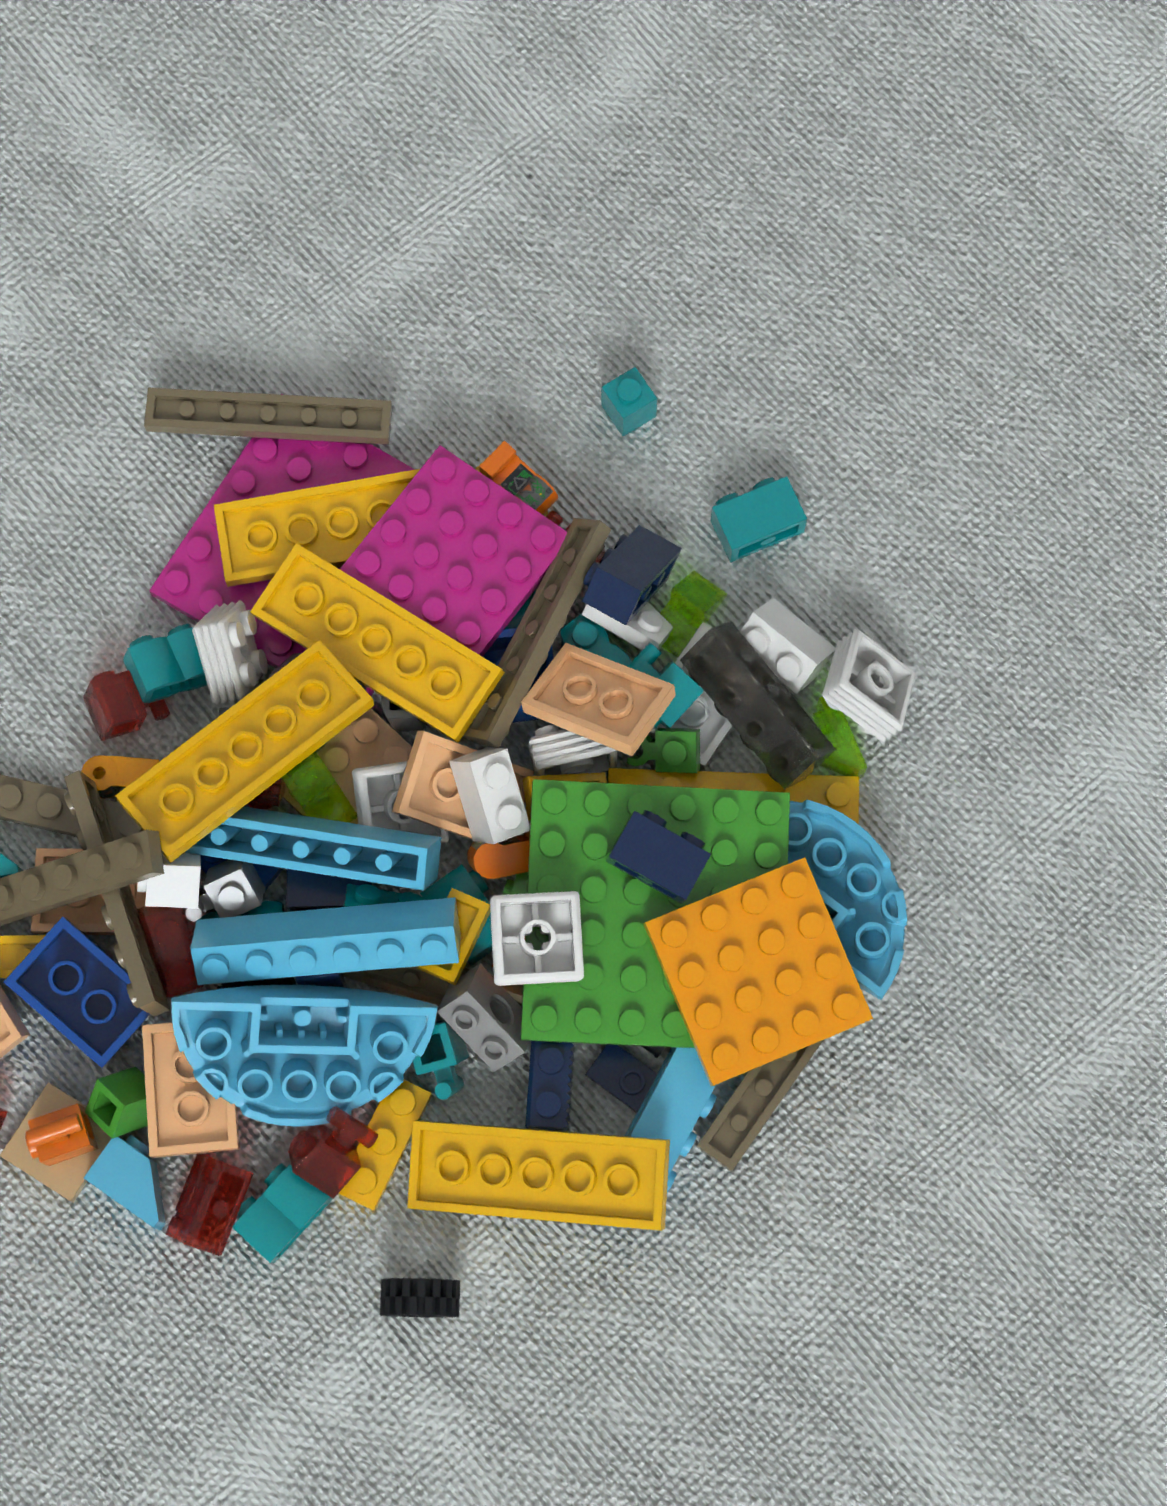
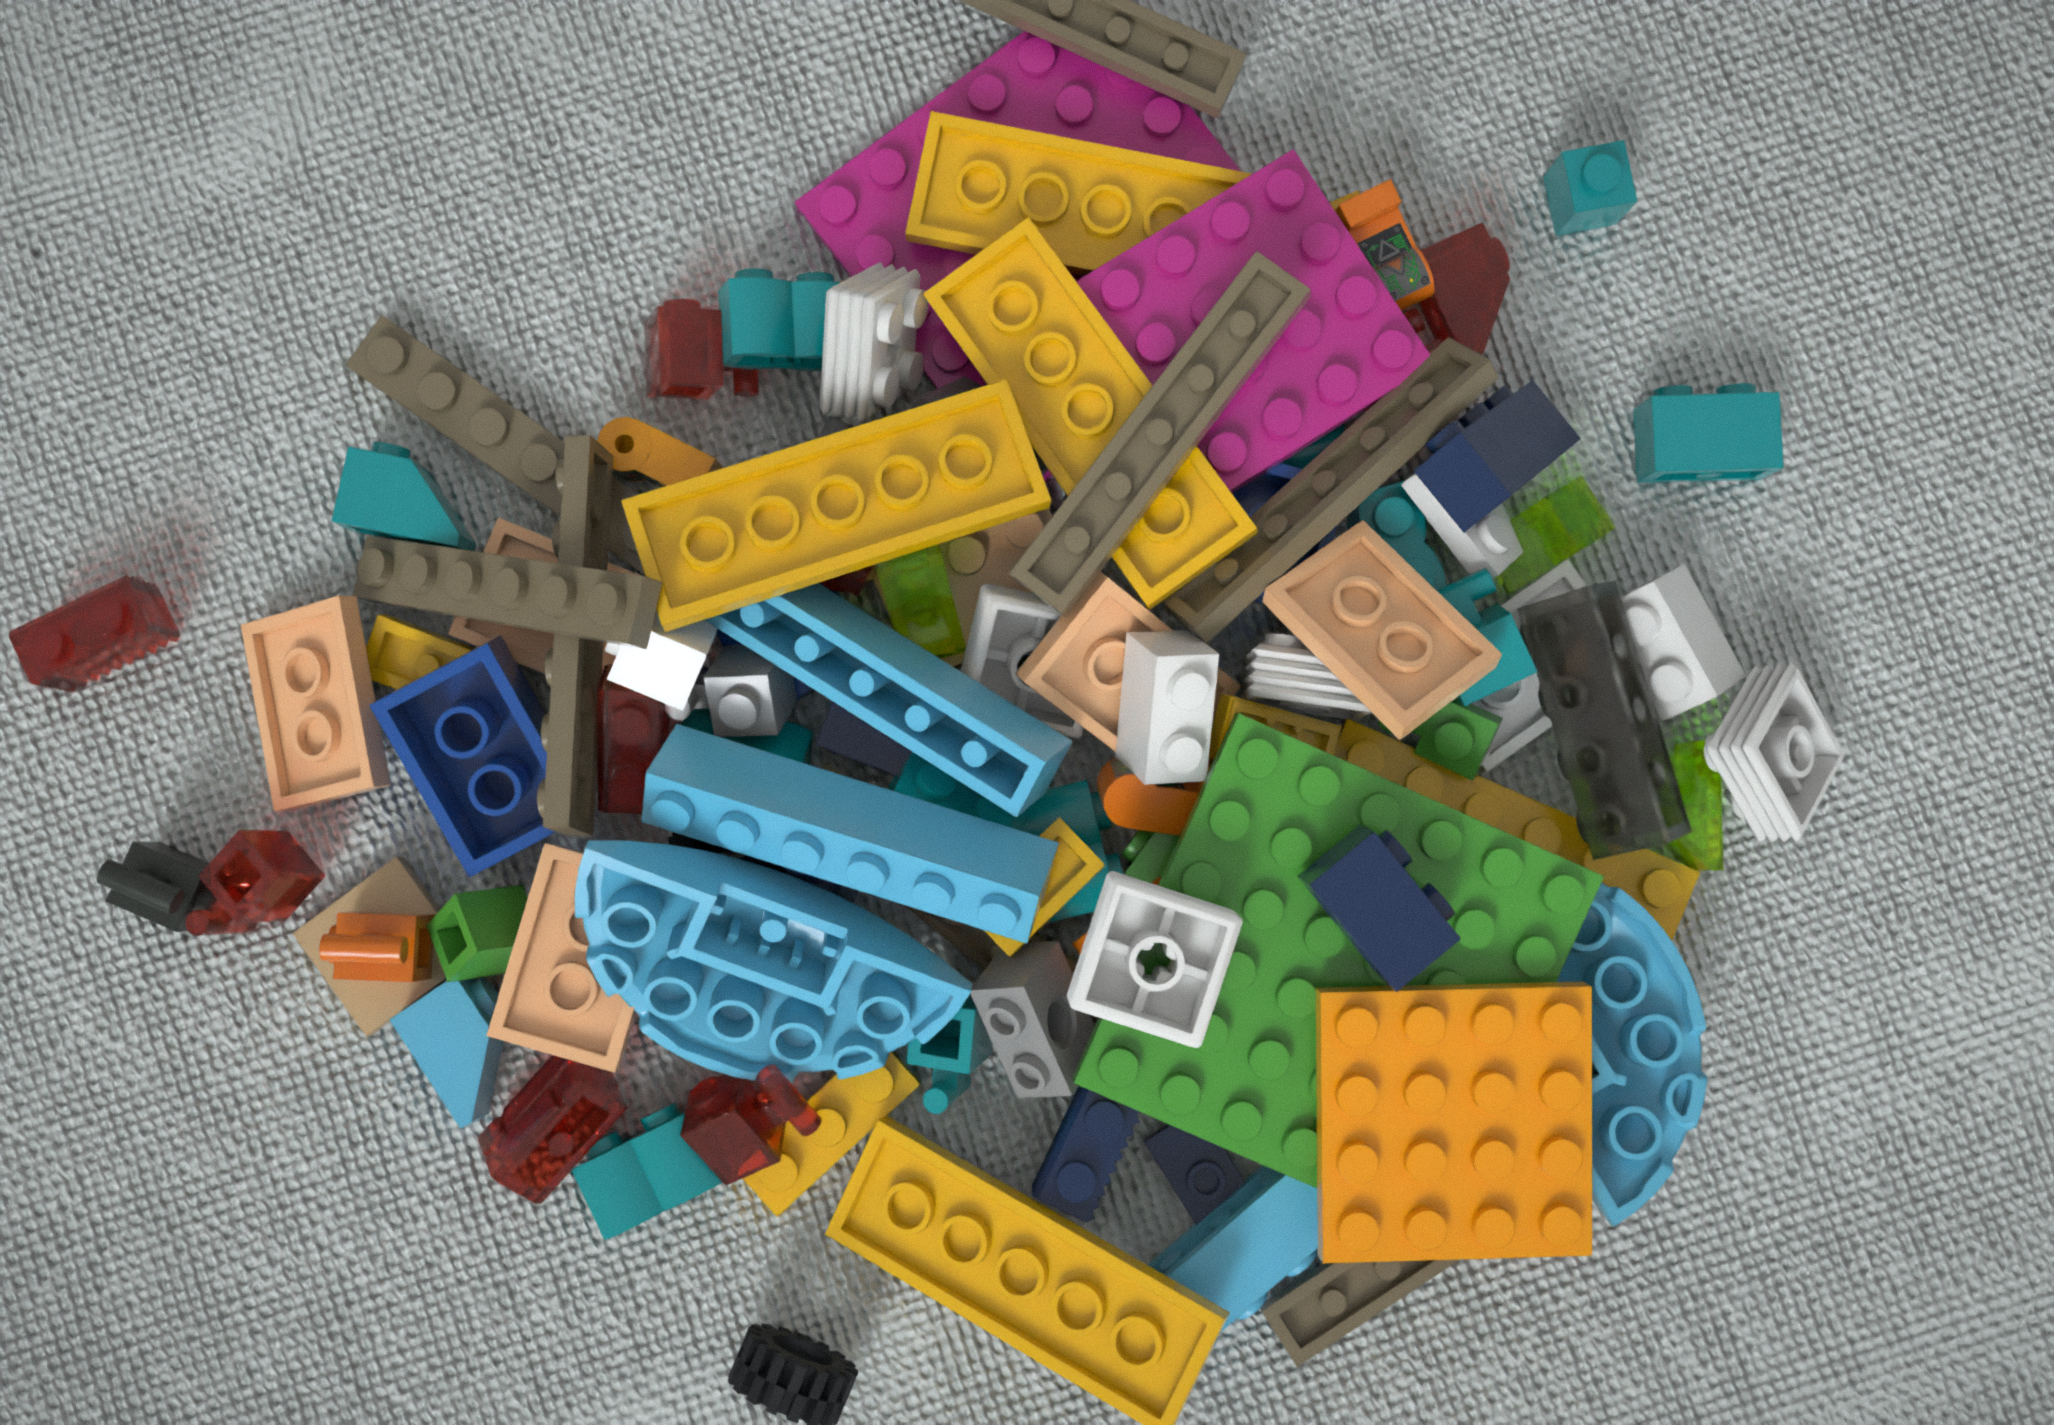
camera: 20 degrees right, 10 degrees up
(422, 637) = (1161, 433): none -> dark tan plate
(577, 483) = (1468, 286): none -> clear red slope

